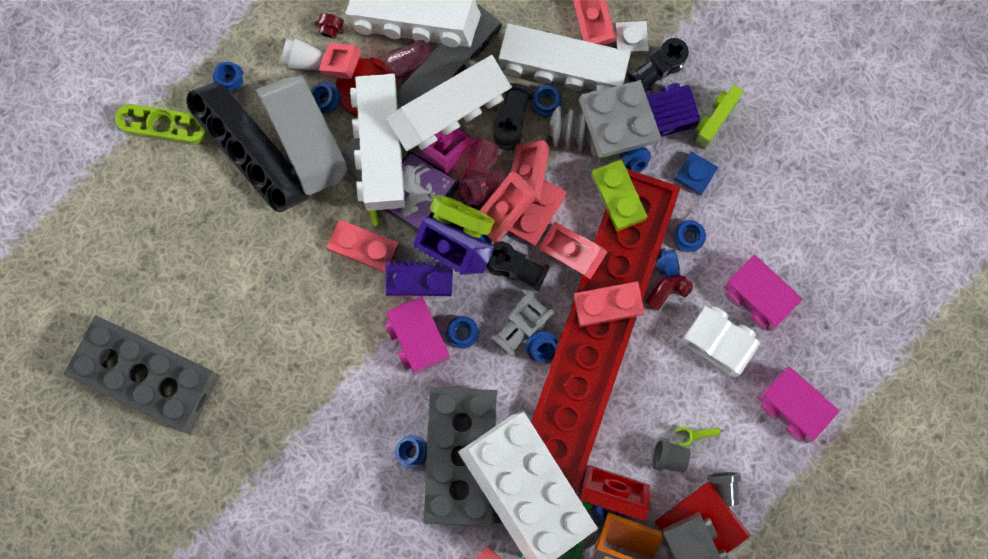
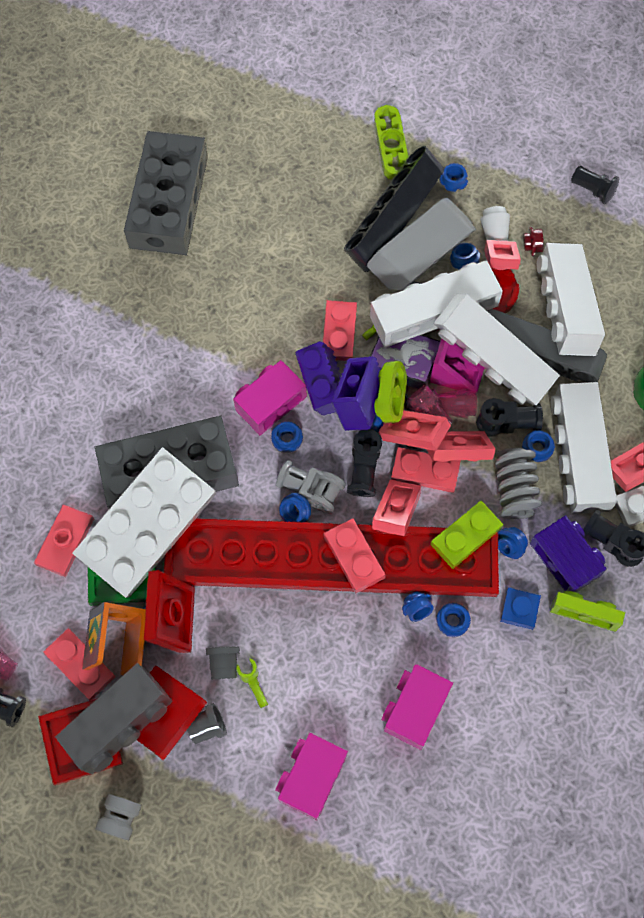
camera: 75 degrees right, 10 degrees down
(403, 451) = (160, 420): blue plate -> none
(406, 59) = (527, 308): clear pink cone -> none
(619, 119) = (541, 507): light grey plate -> none
(669, 286) = (394, 613): dark red arm -> none
(721, 341) = (354, 678): white brick -> none

